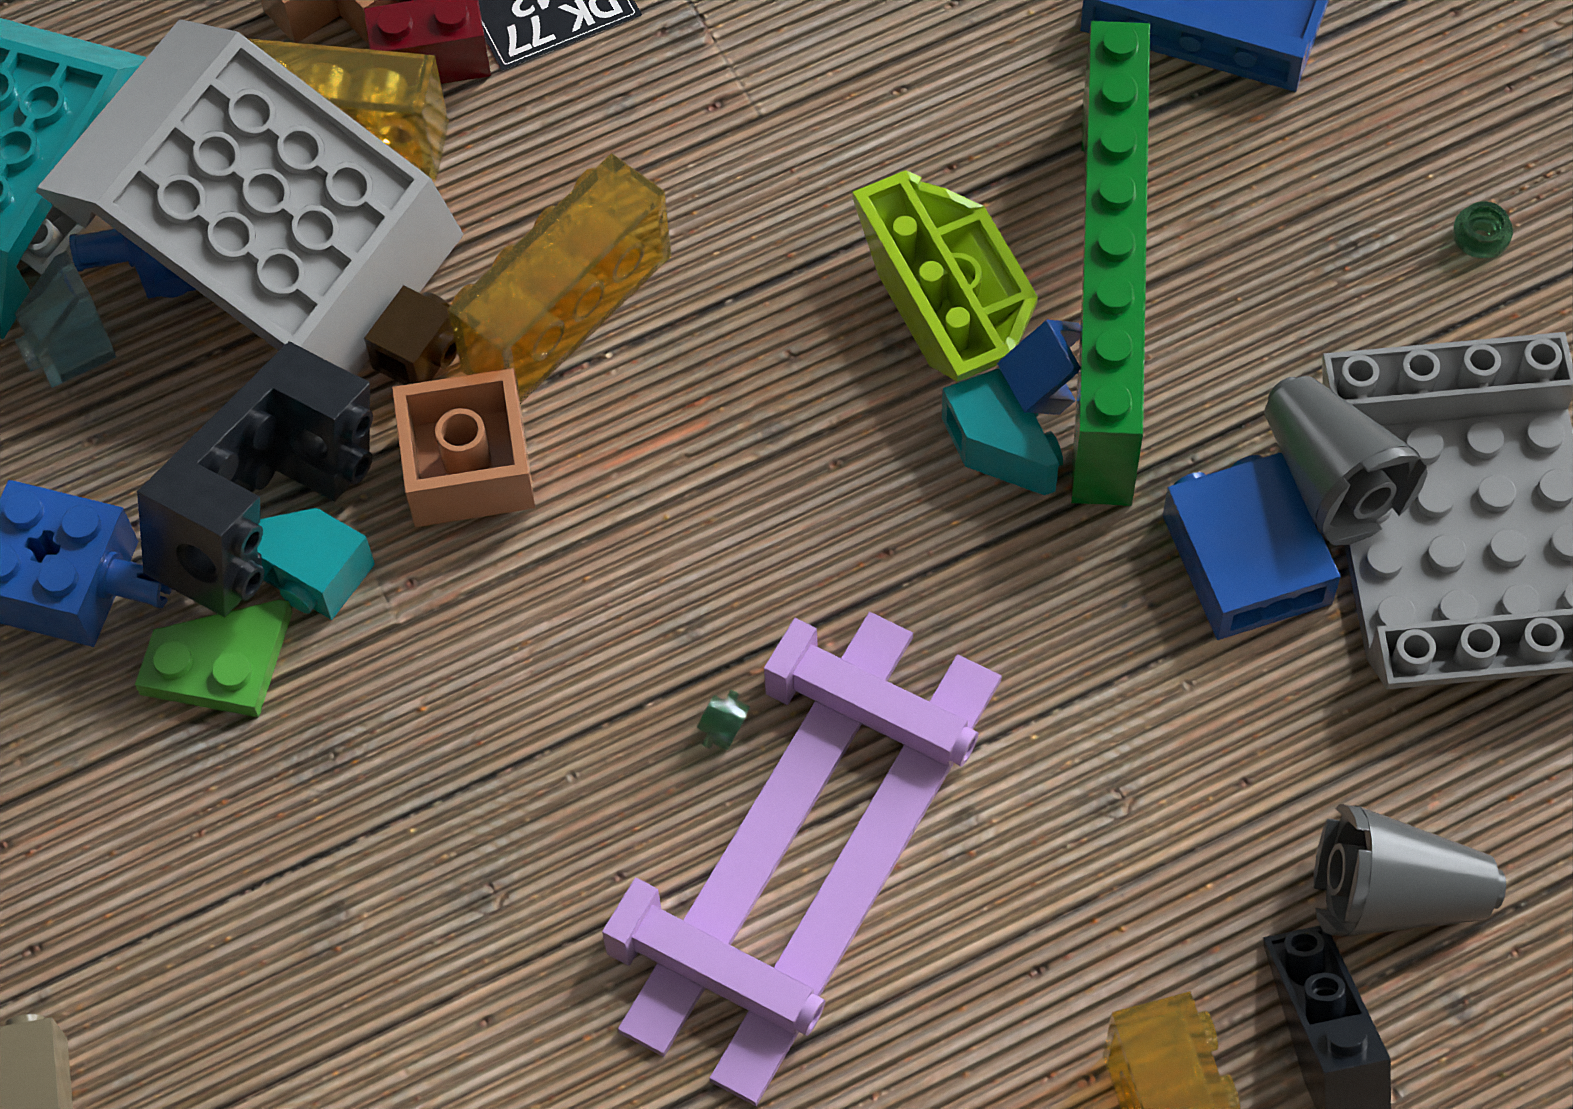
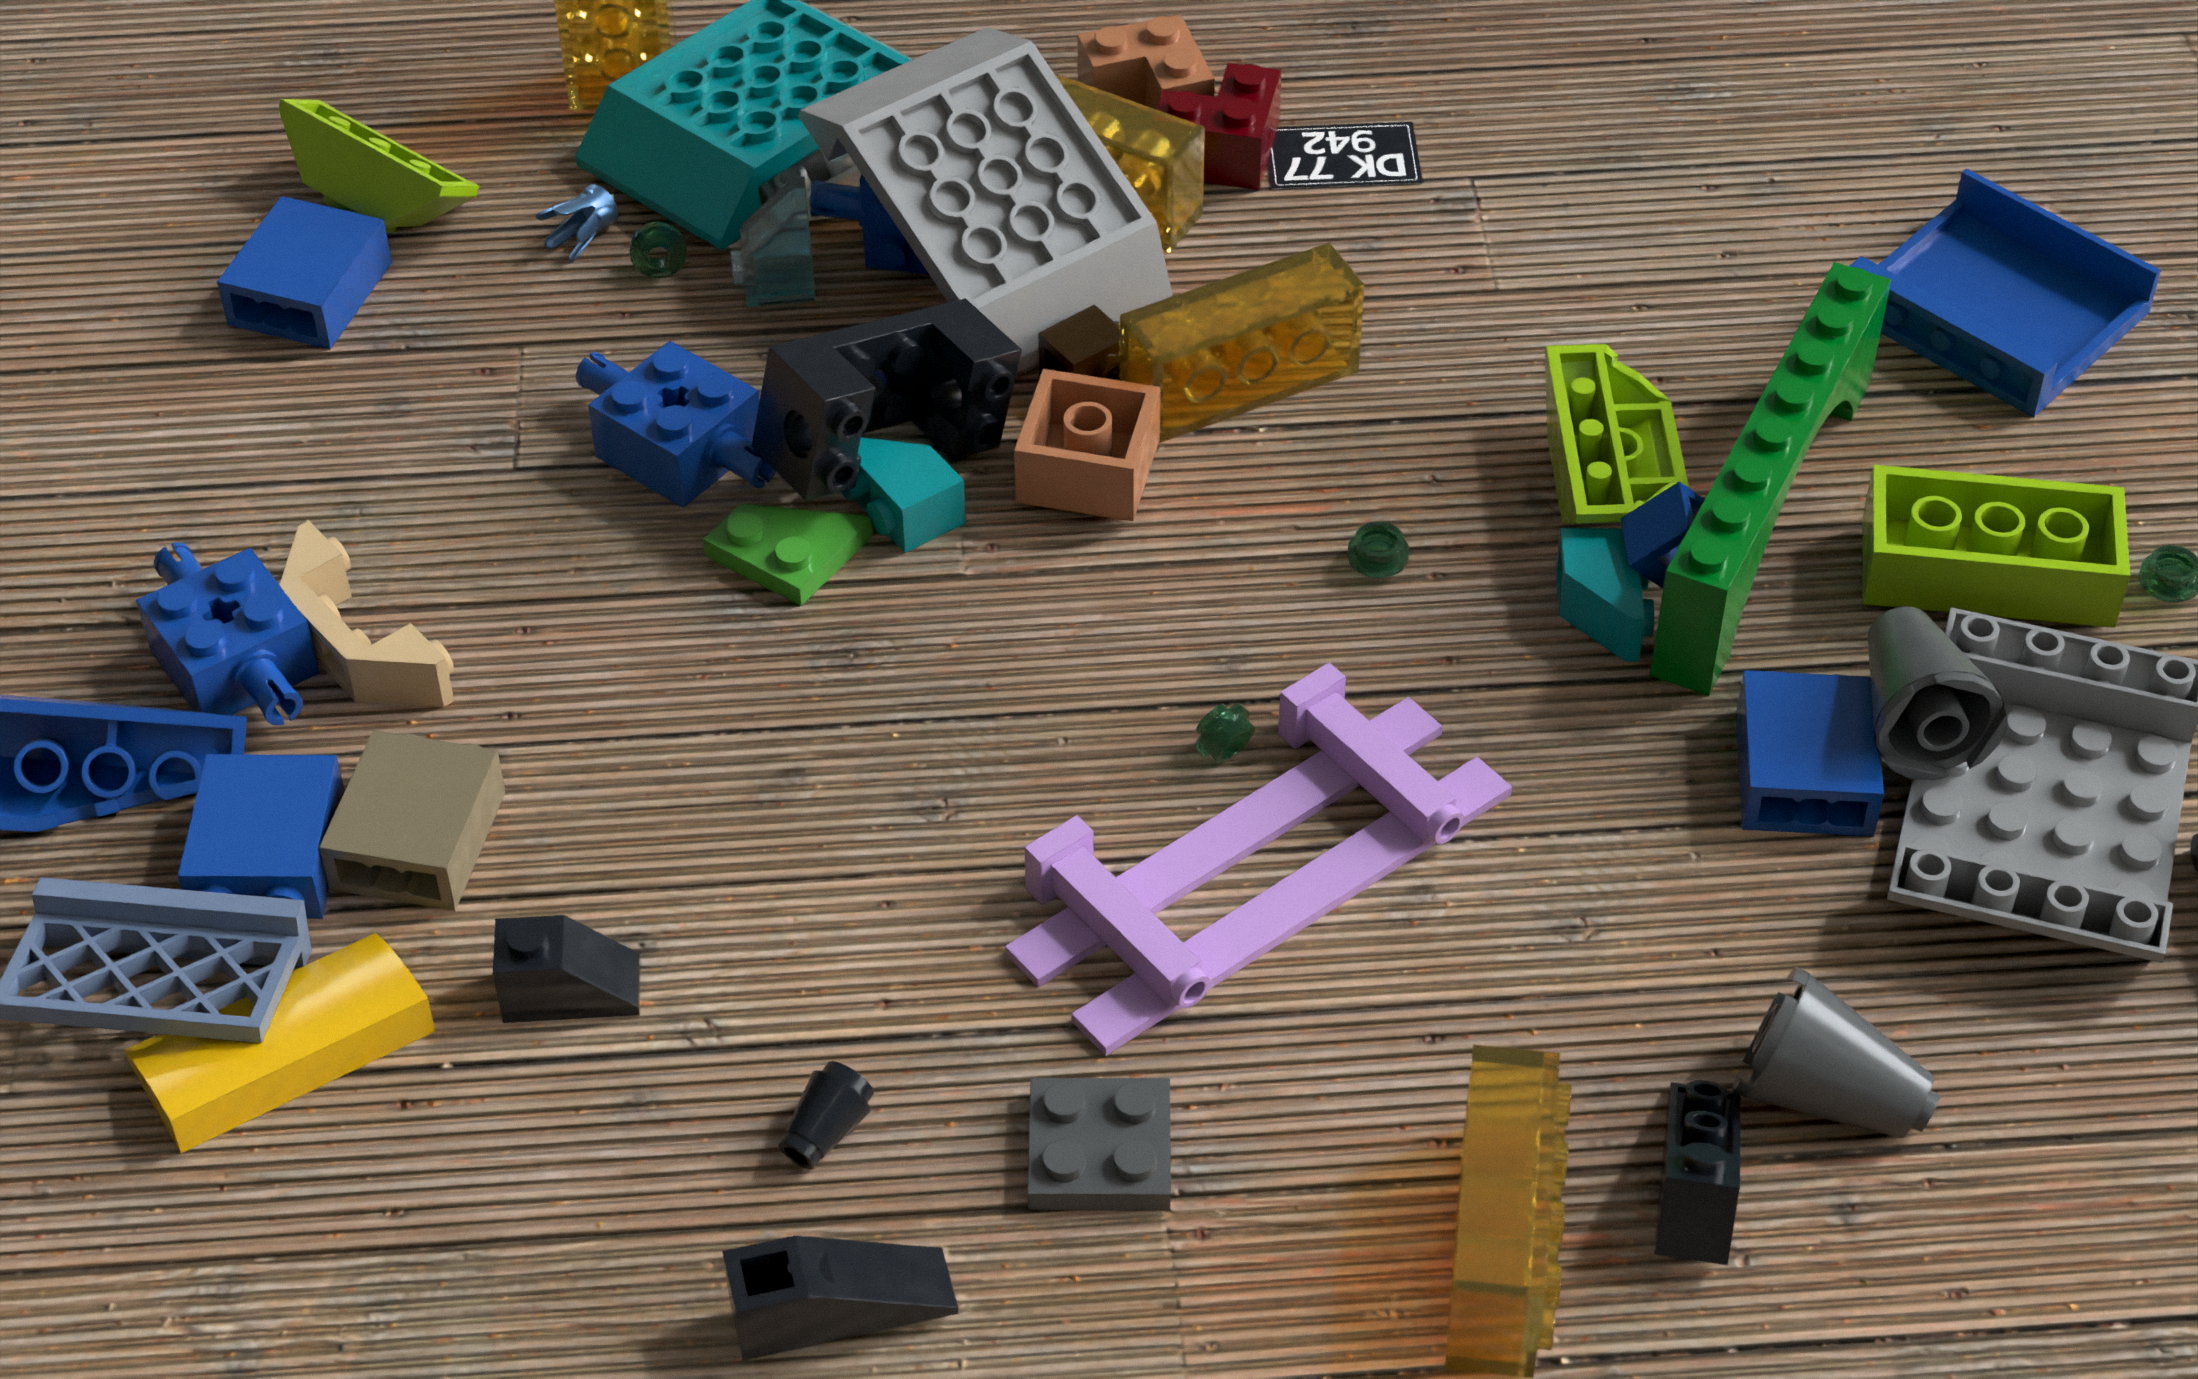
camera: 20 degrees right, 15 degrees down
(773, 447) = (1378, 550): none -> clear green plate
(1328, 262) = (1995, 545): none -> lime brick

